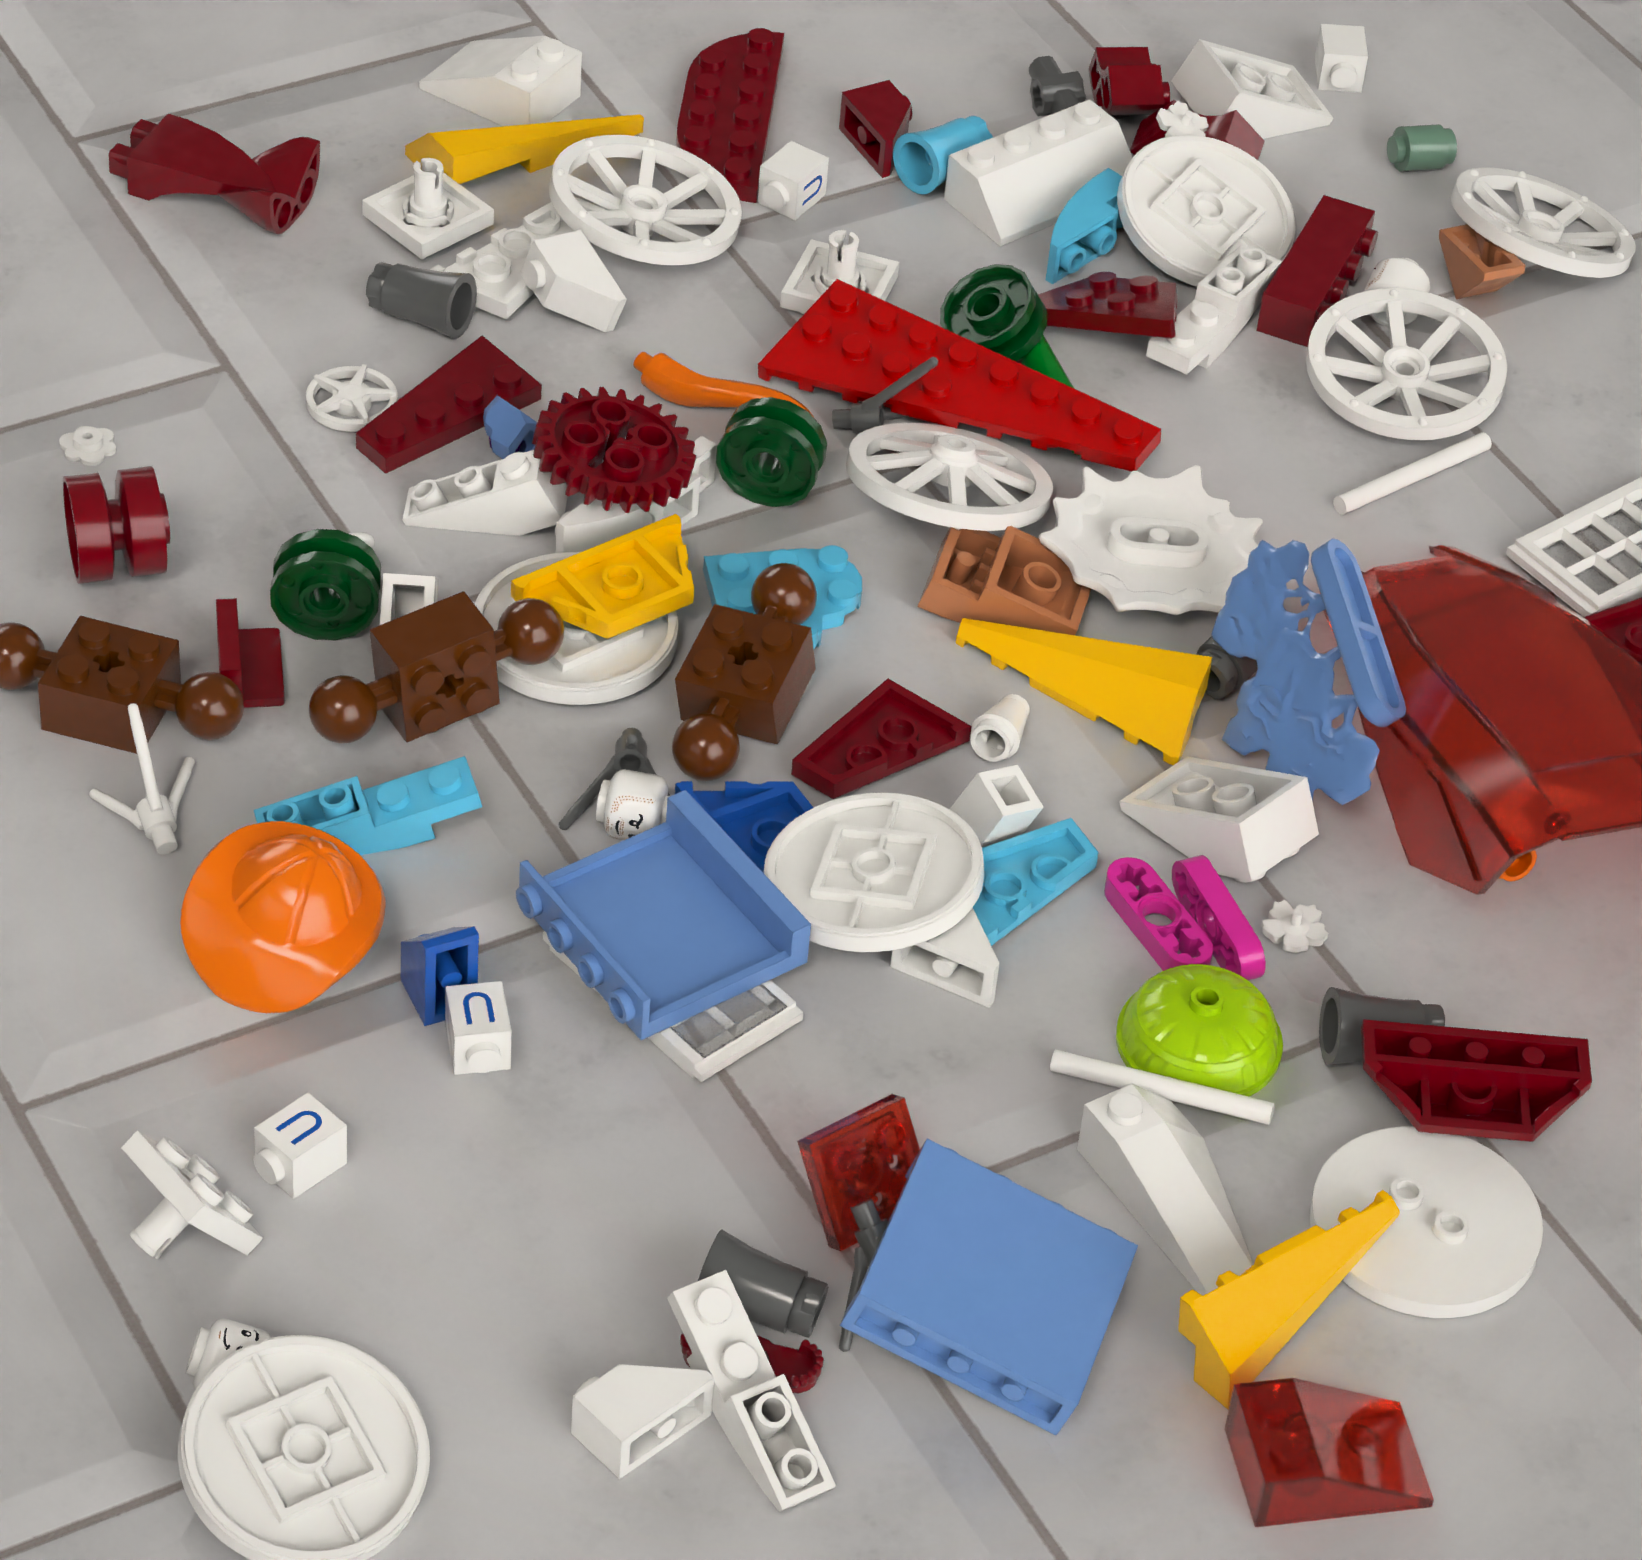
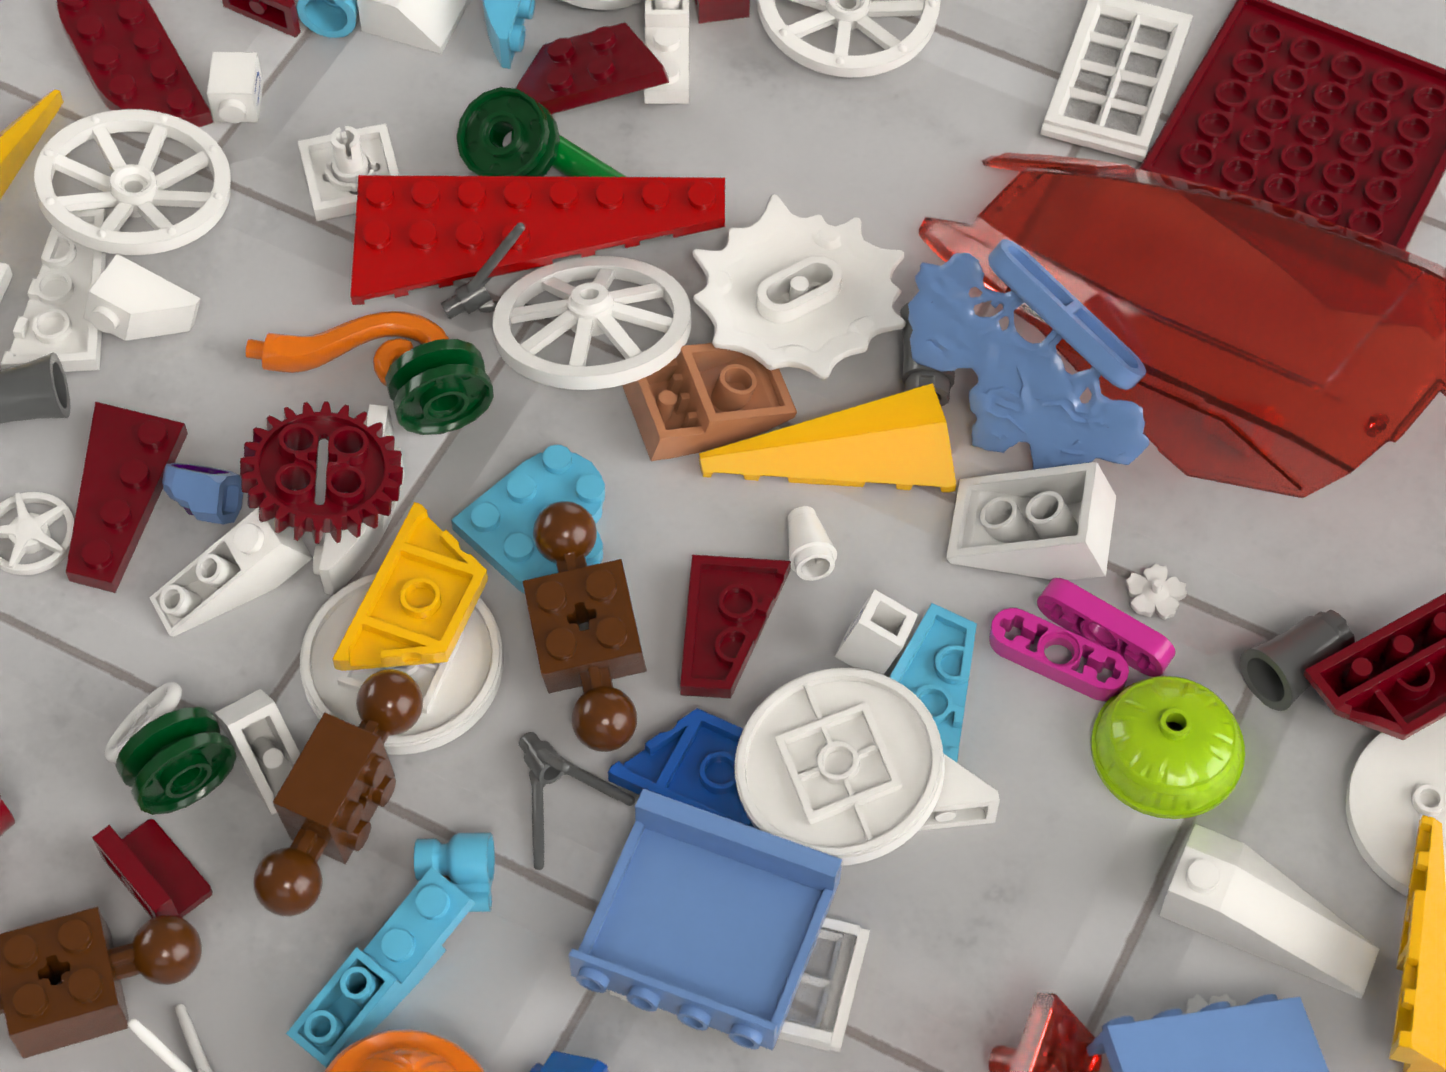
camera: 30 degrees left, 15 degrees up
(504, 784) = (467, 862): none -> medium azure piece
(632, 803) = (590, 814): white head -> none
(1164, 1086) = (1182, 817): white bar -> none
(1412, 473) = (918, 97): white bar -> none

